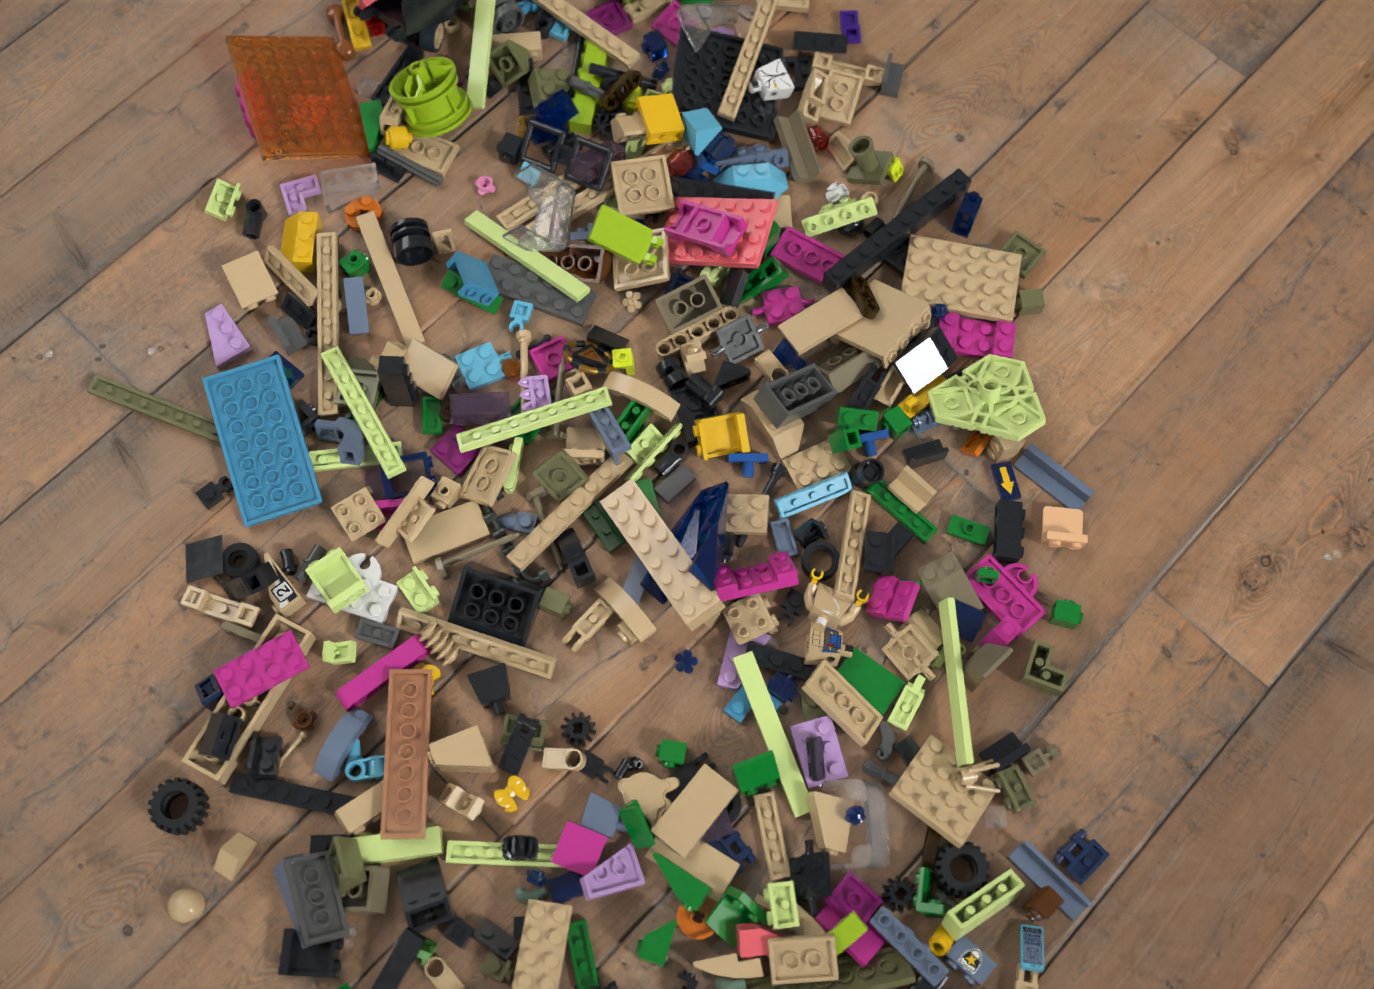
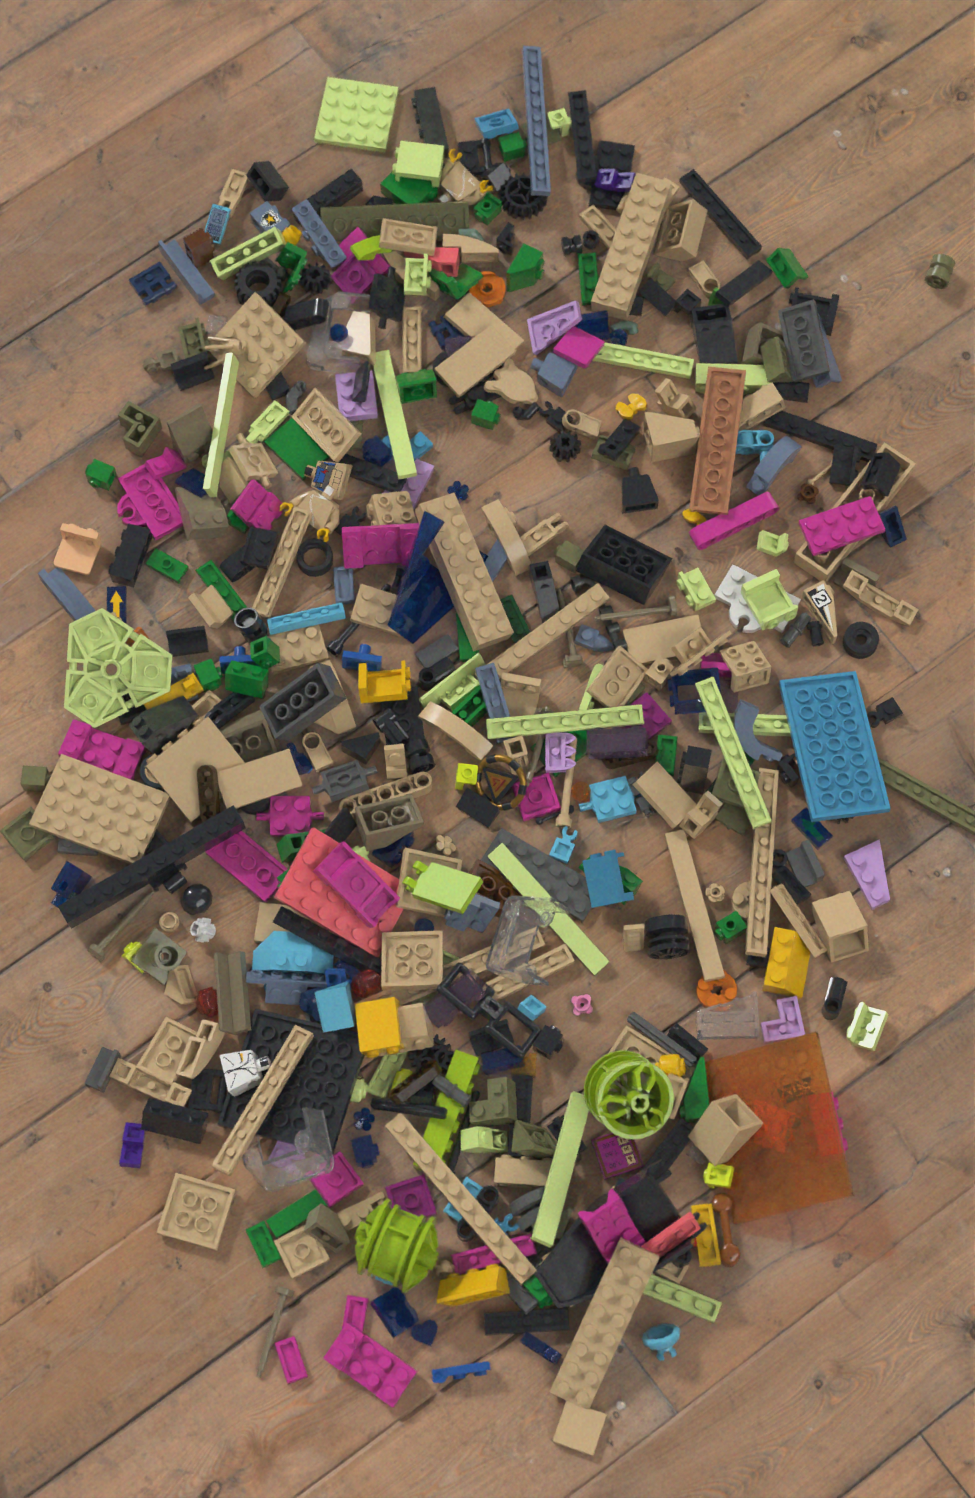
camera: 165 degrees left, 0 degrees up
(166, 794) = (923, 422): black tyre -> none
(186, 905) = (916, 364): tan hair -> none
(204, 559) = (894, 647): black sticker -> none
(233, 855) = (873, 395): tan slope -> none
(250, 581) = (846, 605): black slope -> none
(342, 89) = (724, 1128): none -> tan slope
(348, 62) = (718, 1175): none -> neon yellow bracket
(356, 306) = (732, 879): sand blue tile -> none
(377, 634) = (737, 555): dark grey plate -> none
(440, 643) = (680, 531): tan piece -> none
(482, 644) = (652, 535): tan plate -> none
(520, 848) = (628, 351): black gear -> none
(556, 109) = (493, 1065): clear blue bracket -> none
(557, 60) = (484, 1140): none -> yellowish green slope
(560, 475) = (547, 665): olive plate -> none
(636, 825) = (526, 359): green panel -> none
(685, 885) = (493, 305): green slope -> none
(810, 532) = (318, 584): black bracket -> none
(838, 215) = (208, 902): yellowish green bracket -> none
(880, 773) = (304, 371): dark grey axle -> none
(898, 837) = (306, 313): none -> black beam
(939, 310) = (133, 772): clear blue plate -> none
(986, 575) = (165, 512): green plate -> none

